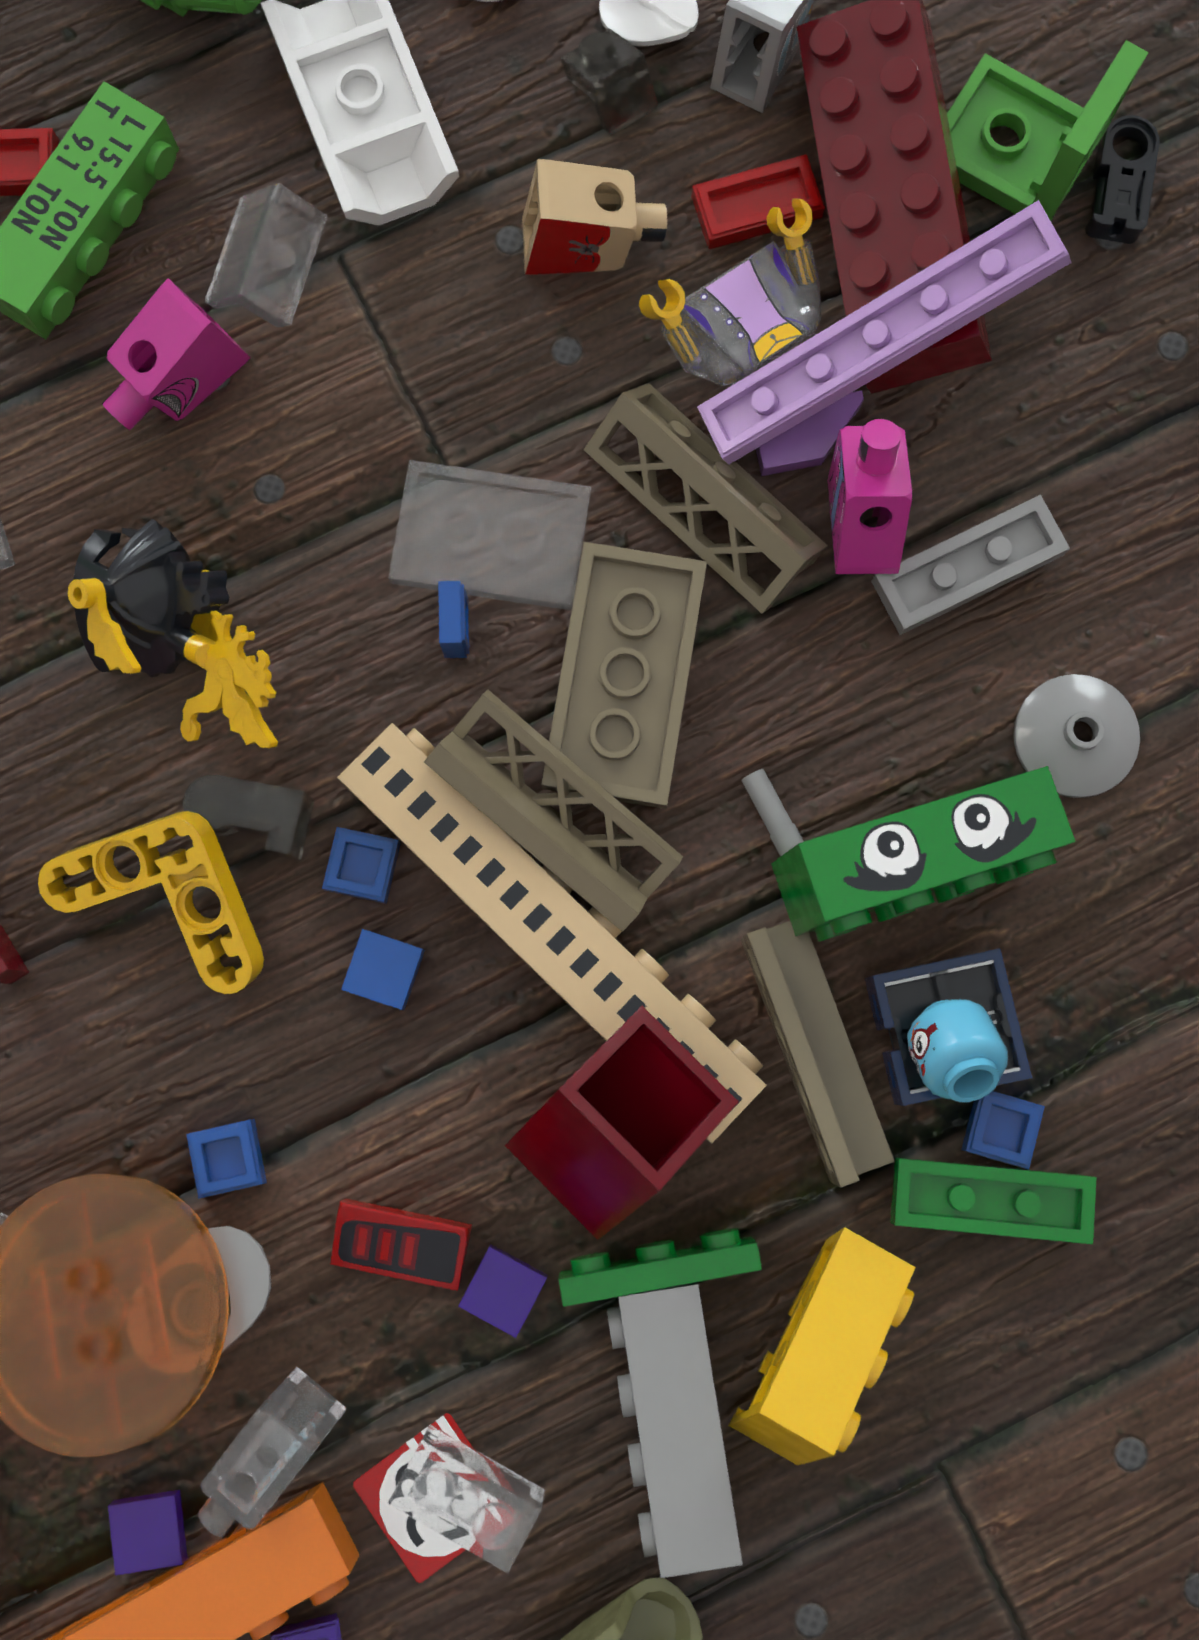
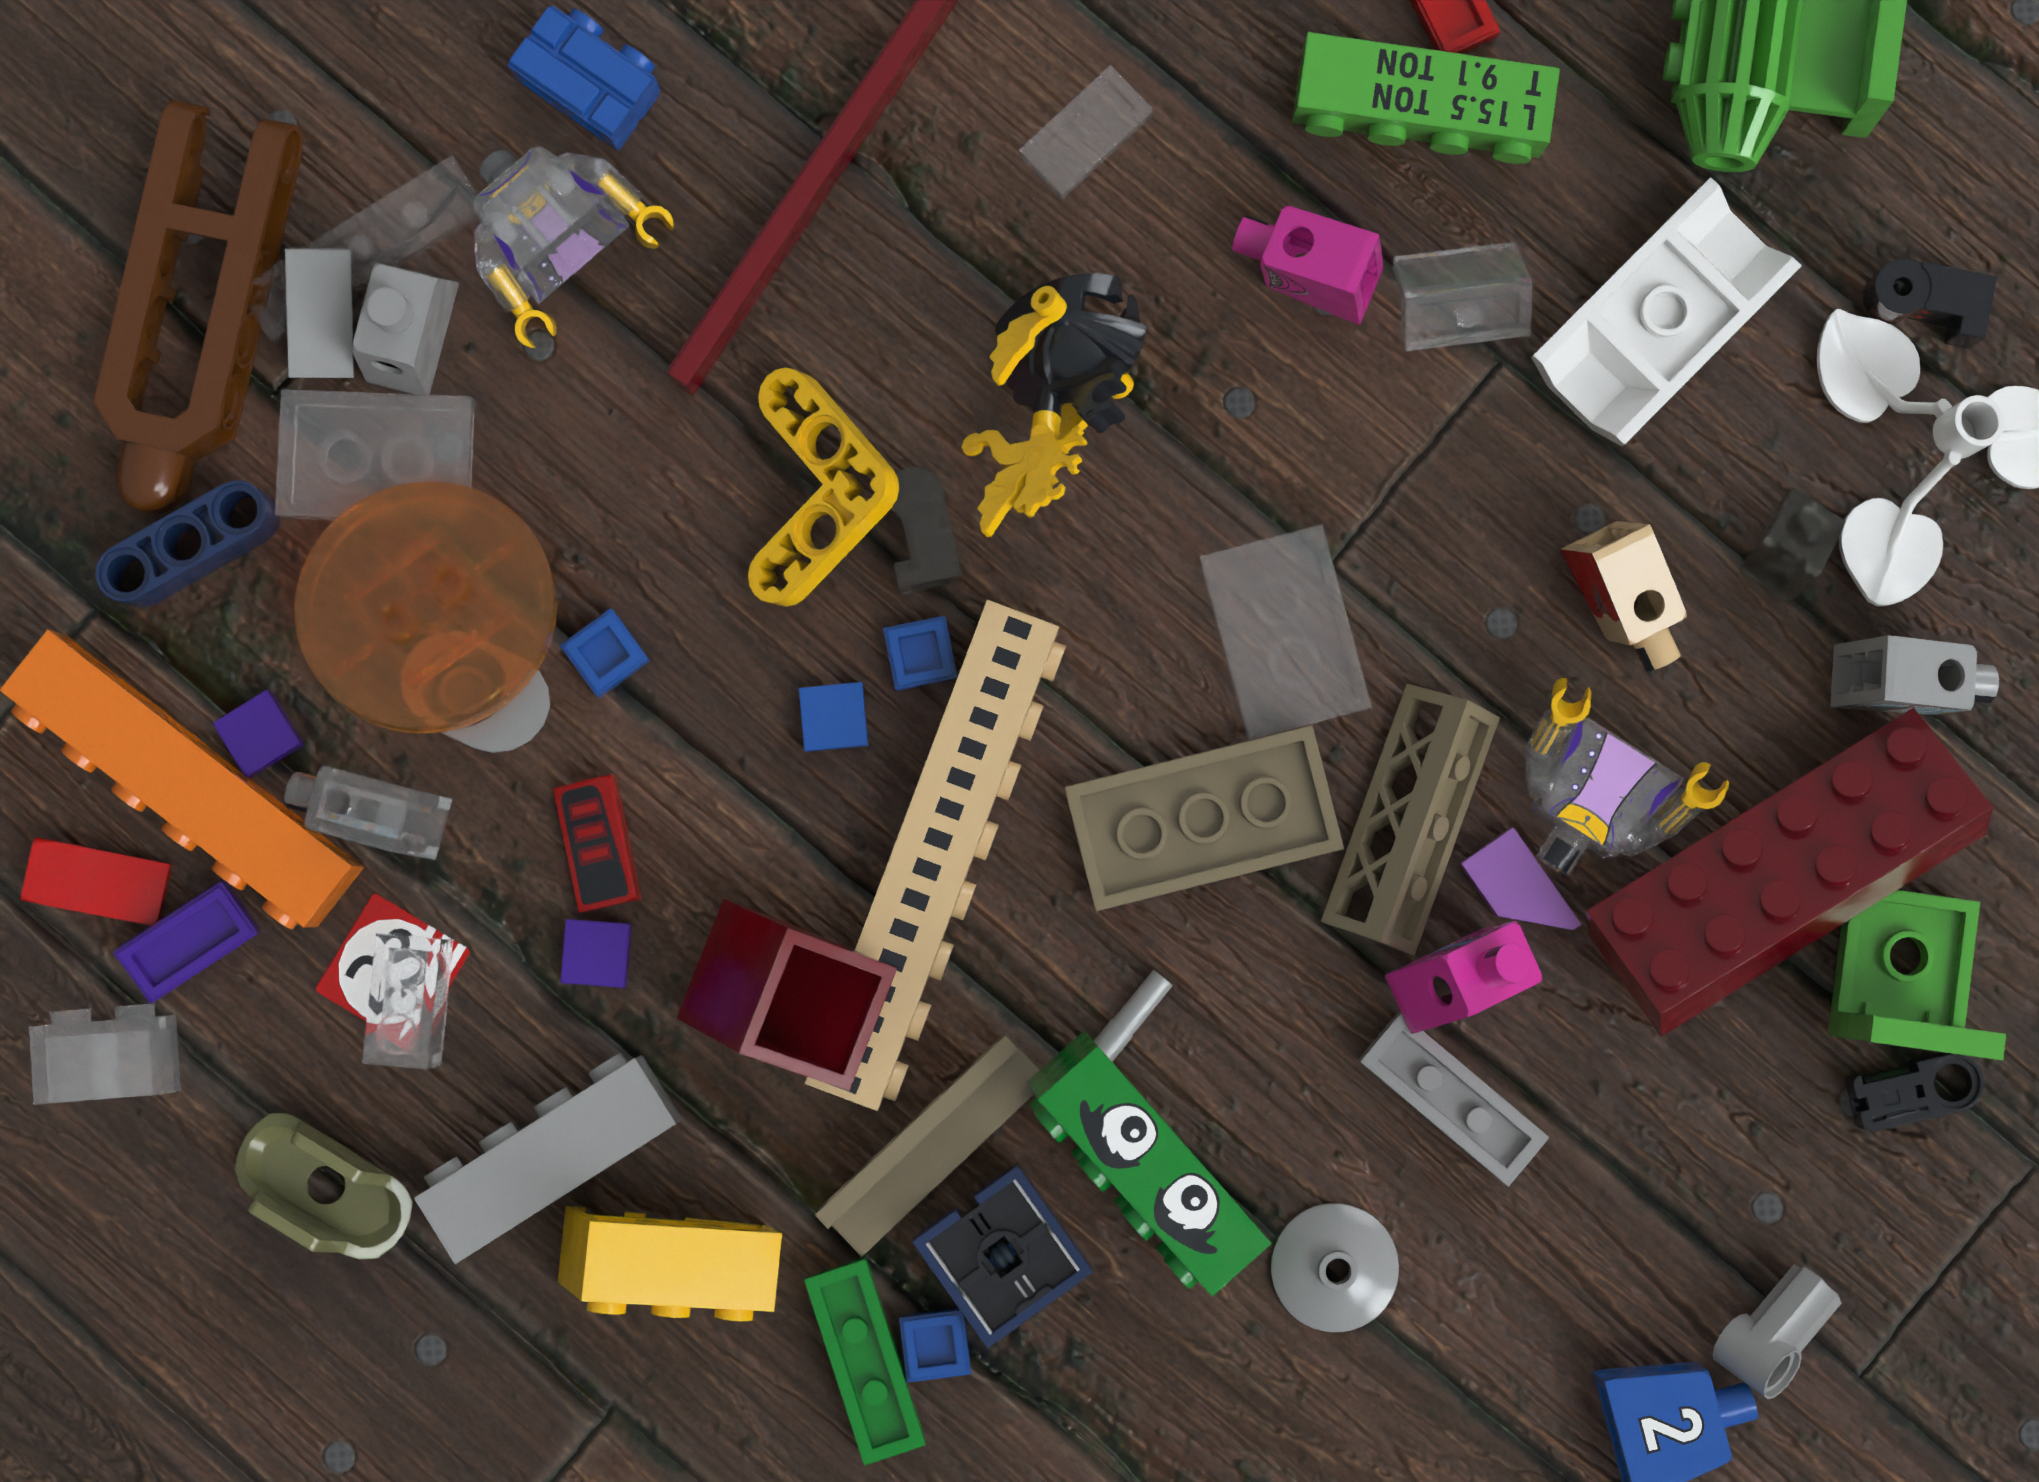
camera: 60 degrees right, 5 degrees up
(453, 619) = (1185, 636): blue tile -> none
(538, 825) = (1023, 805): dark tan fence -> none
(658, 1267) = (676, 1083): green plate -> none
(739, 204) = (1732, 742): red tile -> none
(885, 332) = (1624, 923): lavender tile -> none
(957, 1050) = (978, 1267): medium azure head -> none

